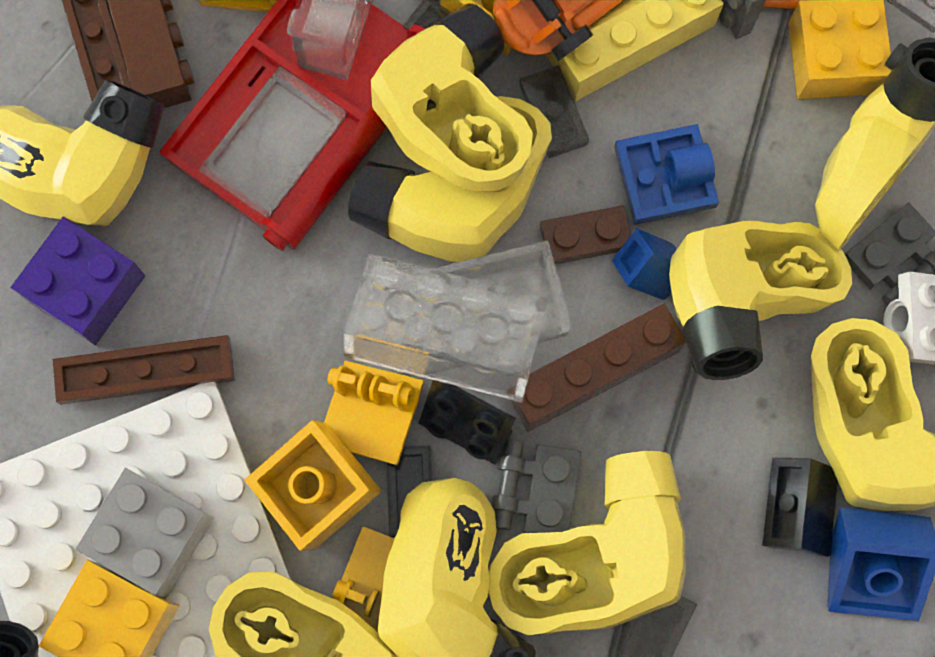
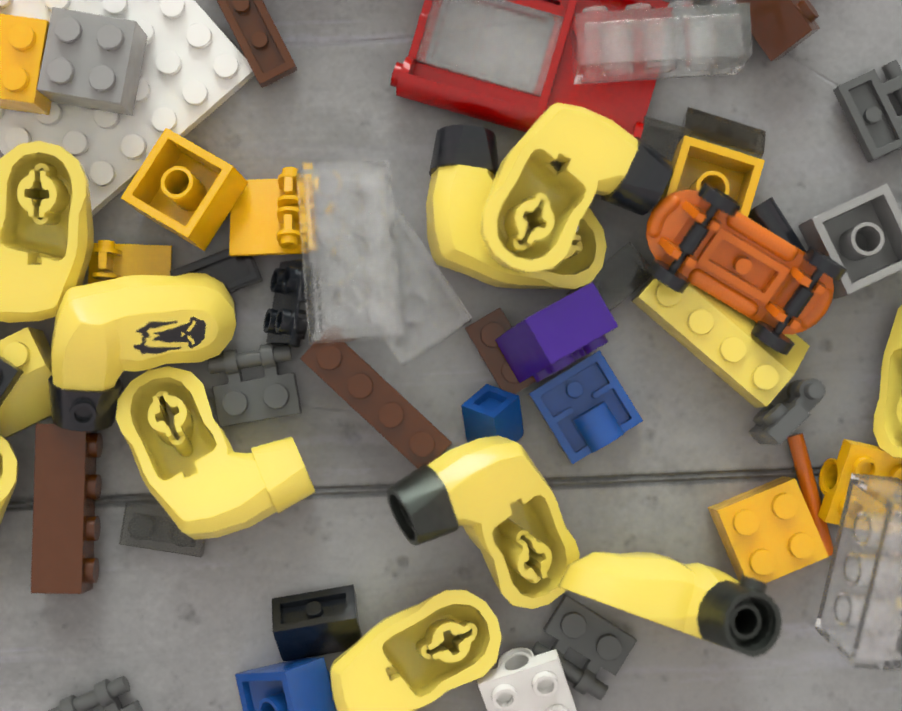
camera: 70 degrees right, 10 degrees up
(591, 167) = (557, 334): none -> dark purple brick

